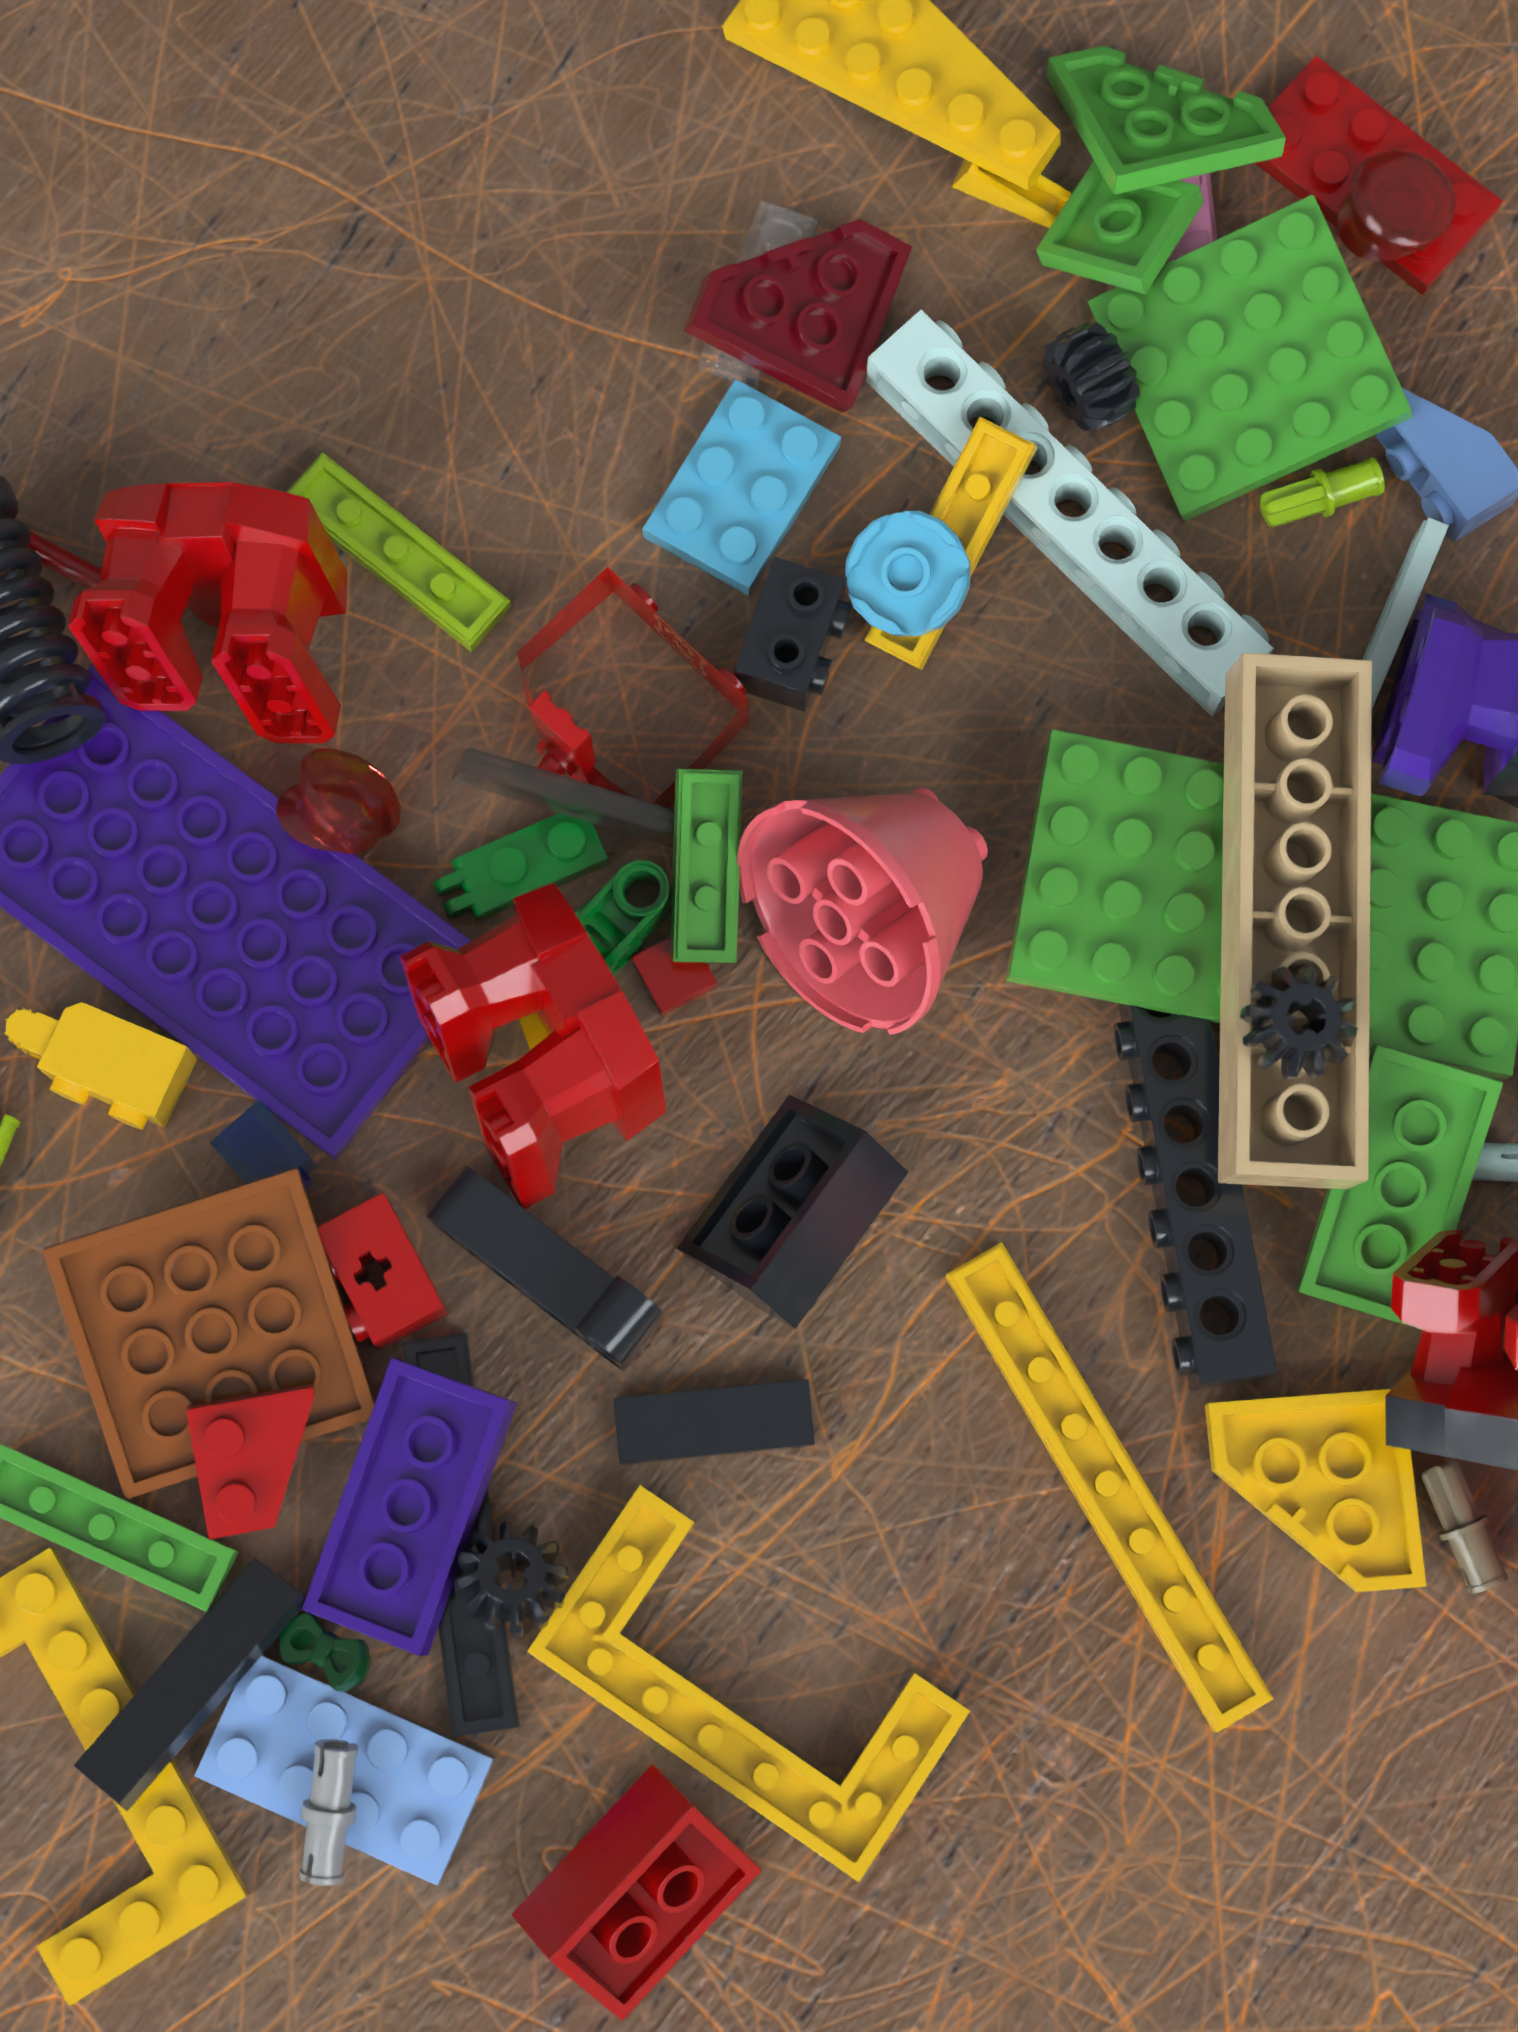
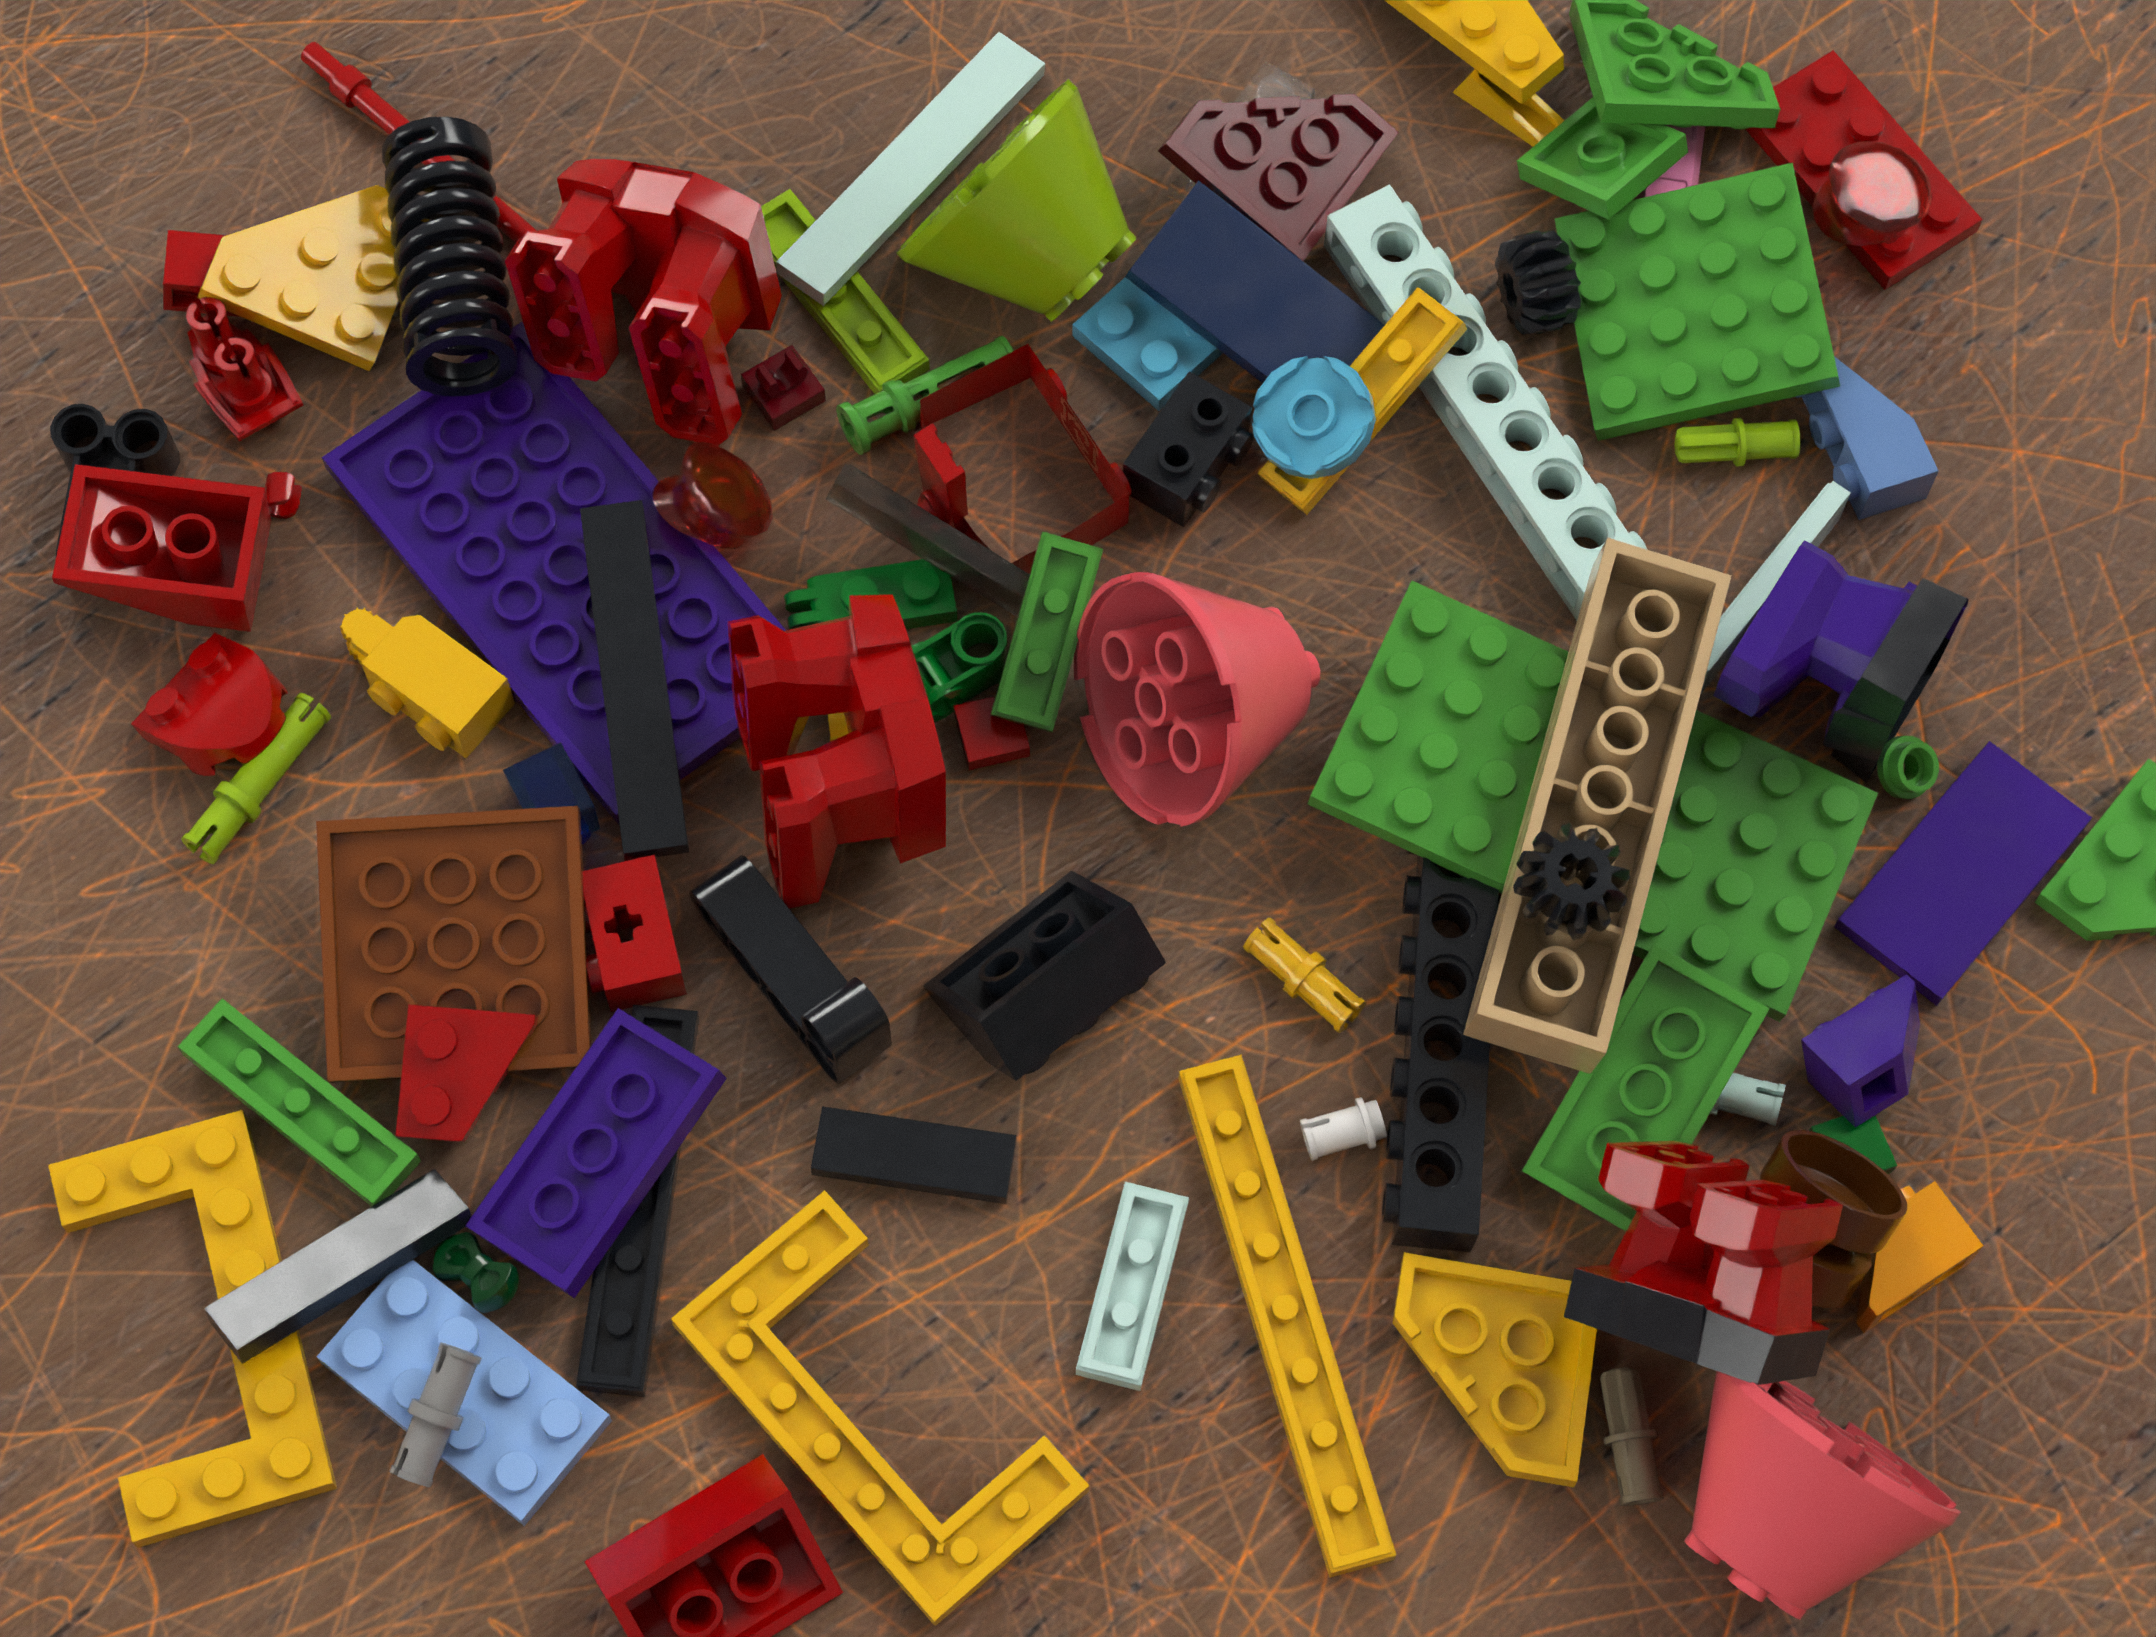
camera: 15 degrees right, 10 degrees down
(312, 1014) = (634, 681): none -> black tile
(372, 664) = (783, 387): none -> dark red tile
(437, 402) = (910, 169): none -> light aqua tile
(490, 651) = (898, 402): none -> bright green pin
(510, 1605) = (649, 1246): black gear -> none
(573, 432) = (1031, 217): none -> lime cone
(811, 456) = (1247, 290): none -> dark blue tile
(956, 1497) = (1132, 1286): none -> light aqua tile
(1041, 1145) = (1304, 975): none -> yellow pin
(1118, 1292) = (1344, 1129): none -> white pin

